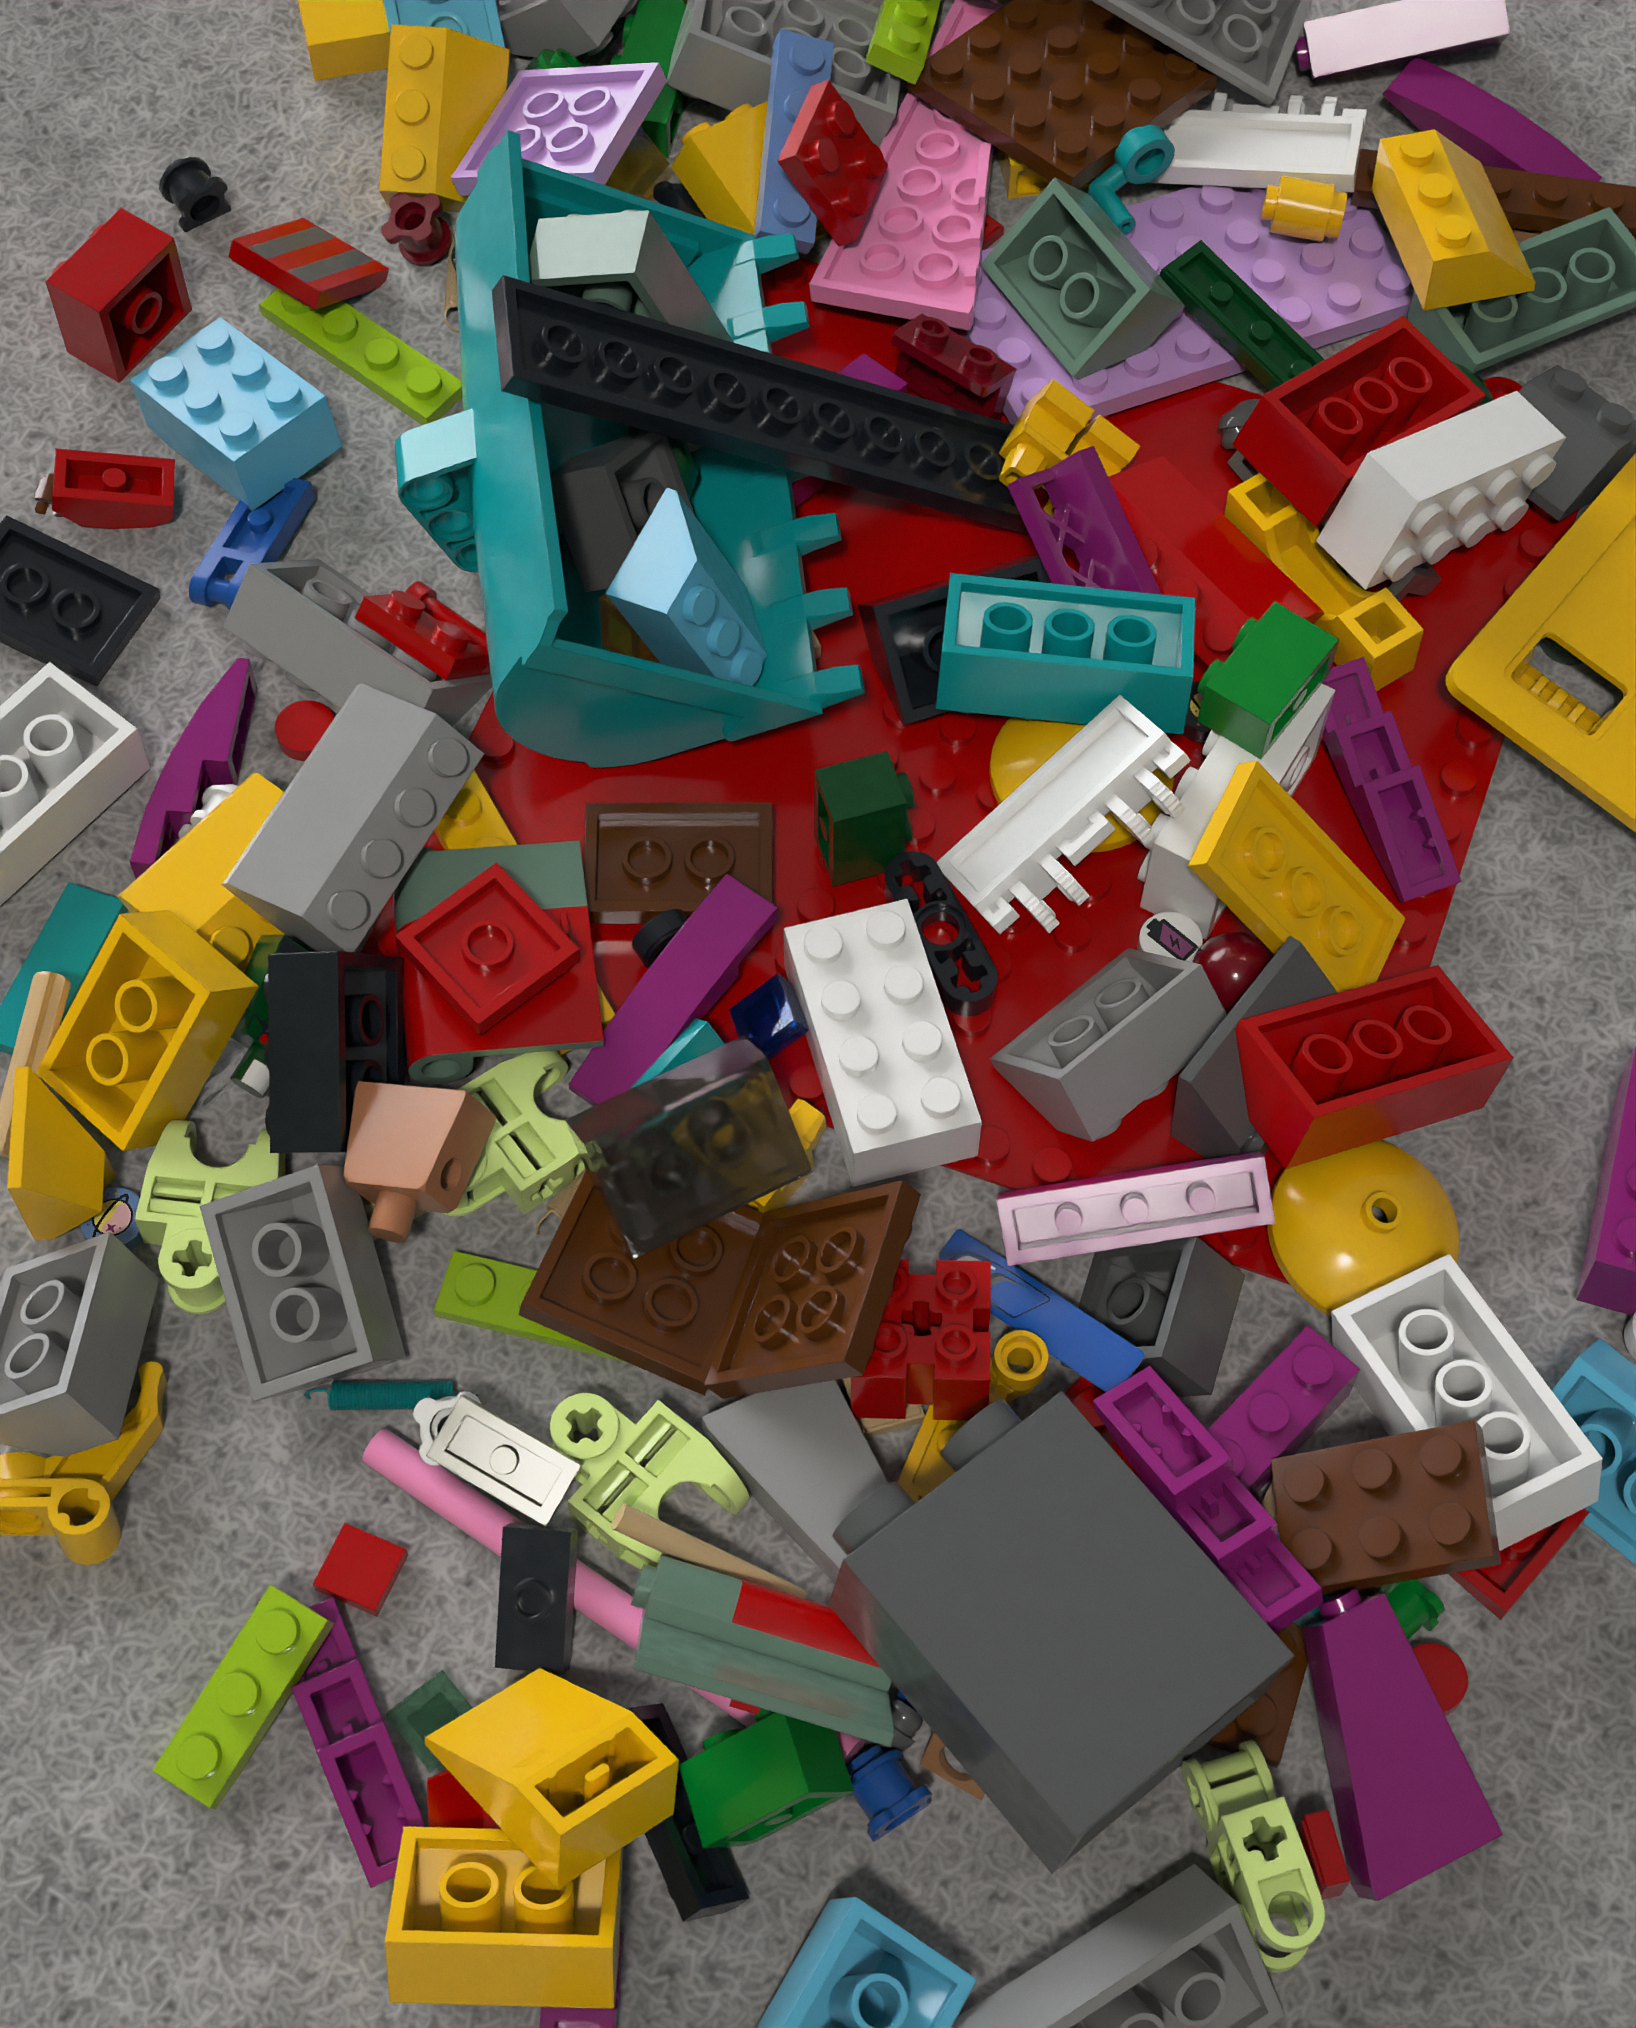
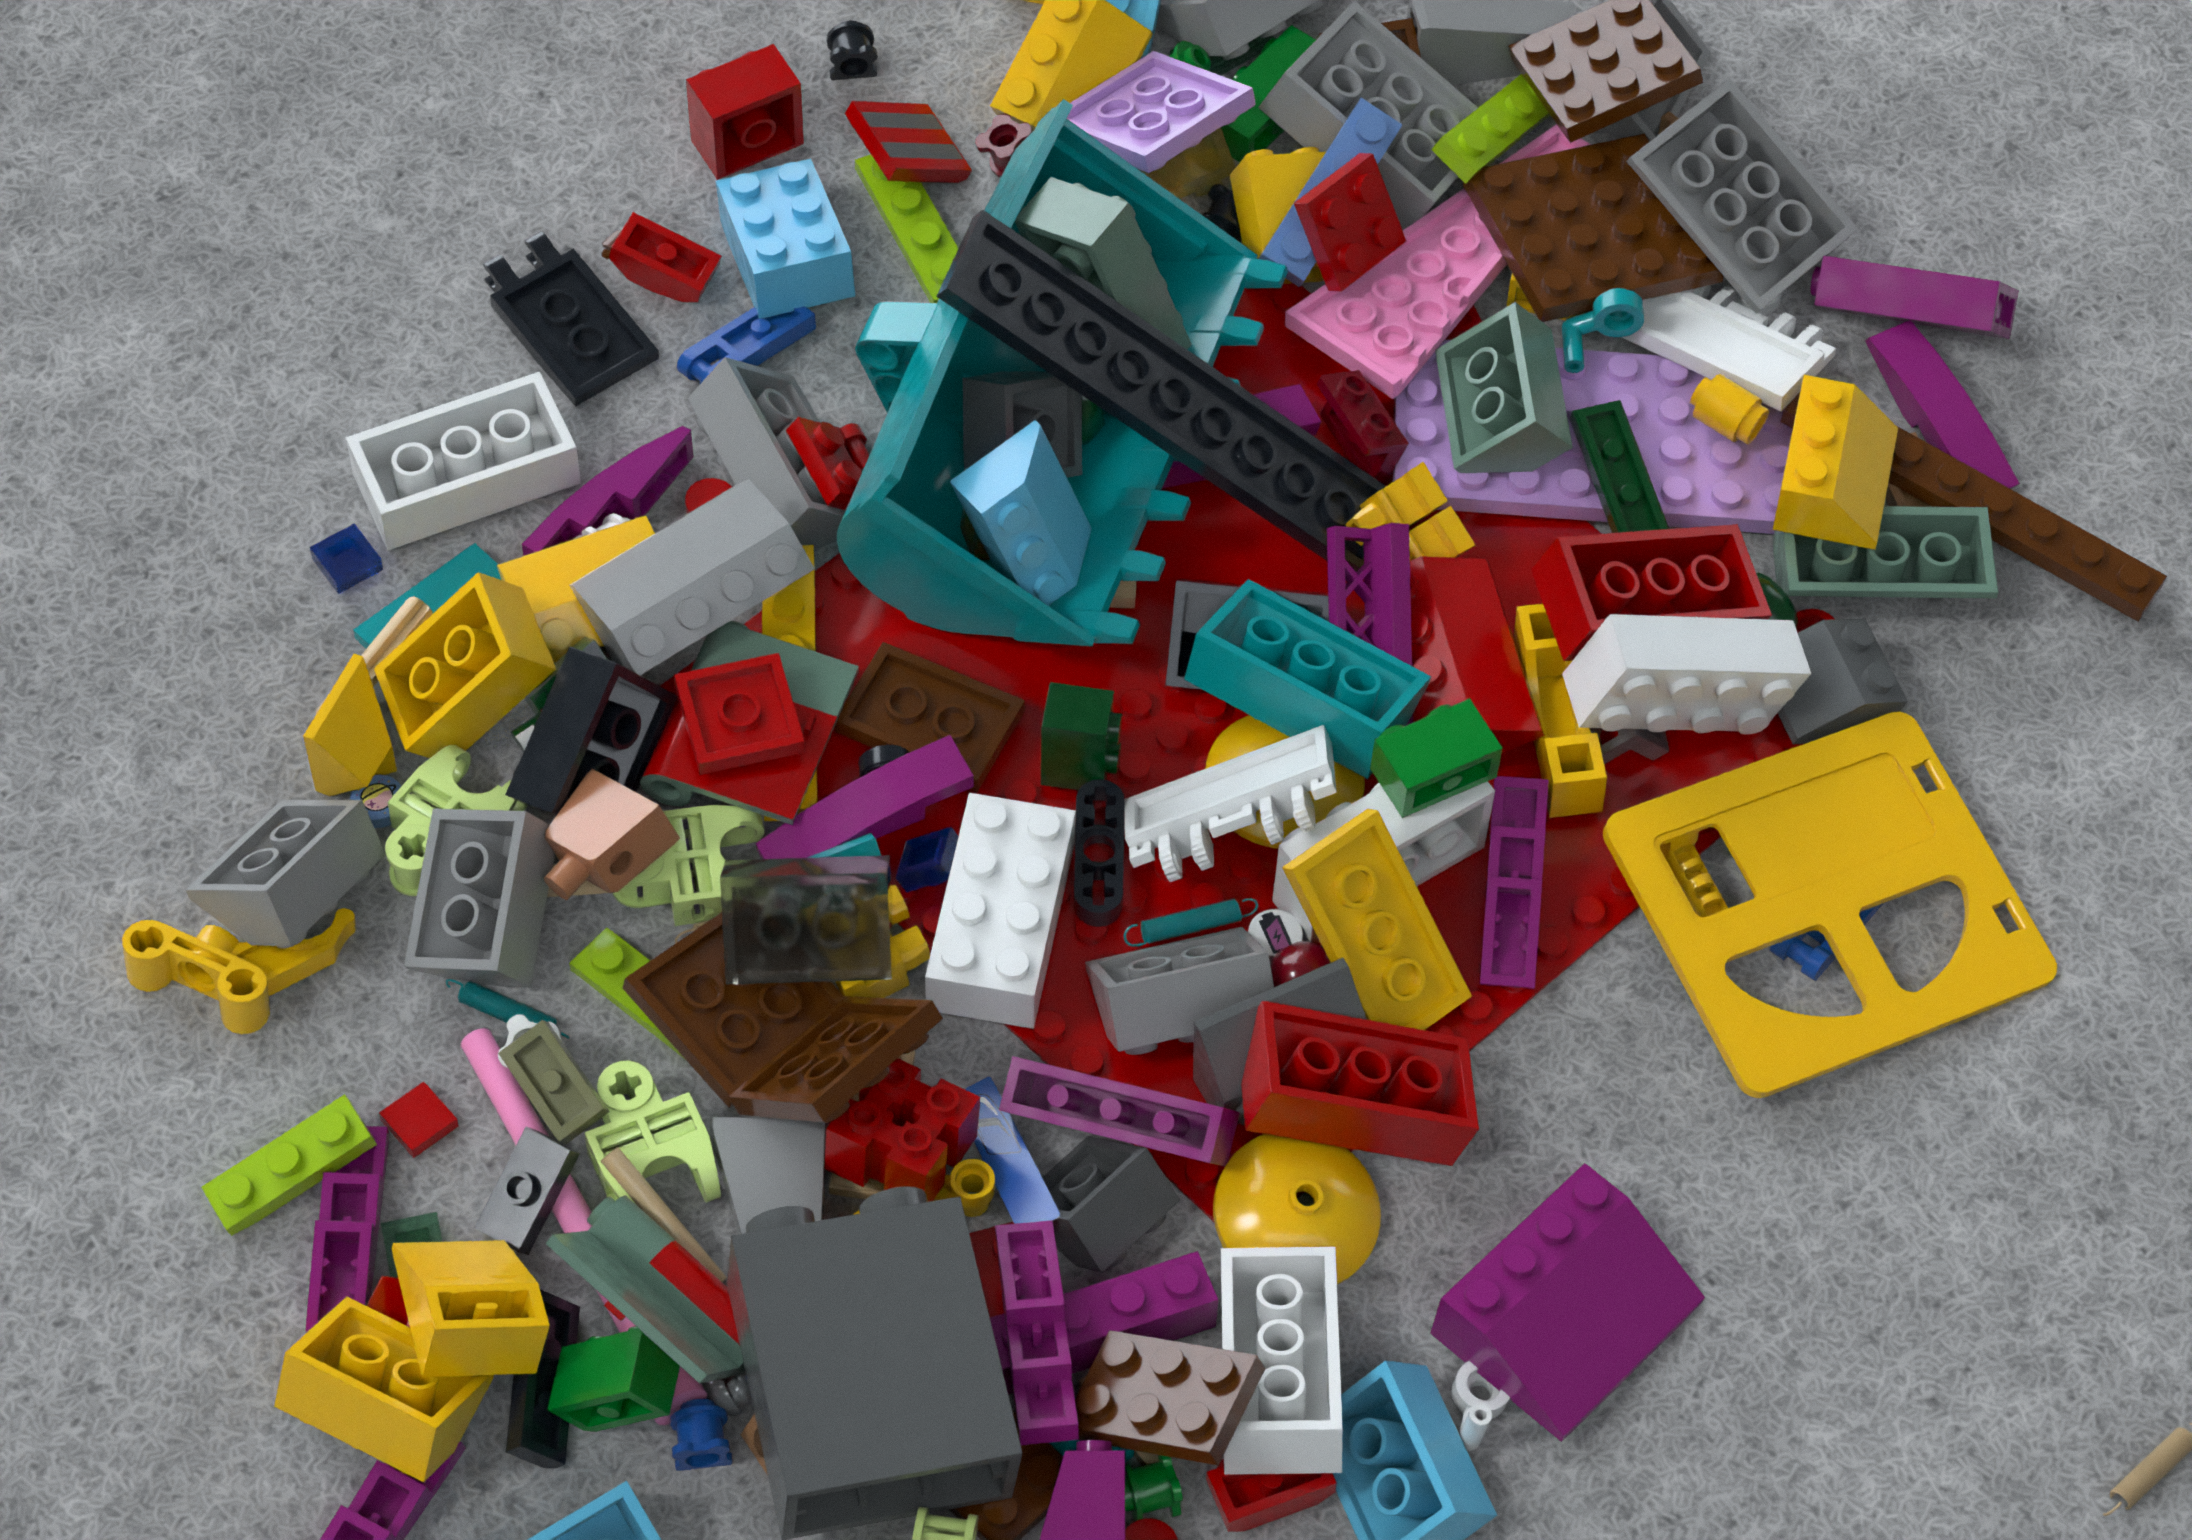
camera: 25 degrees right, 5 degrees down
(1073, 966) = (1190, 921): none -> teal piece

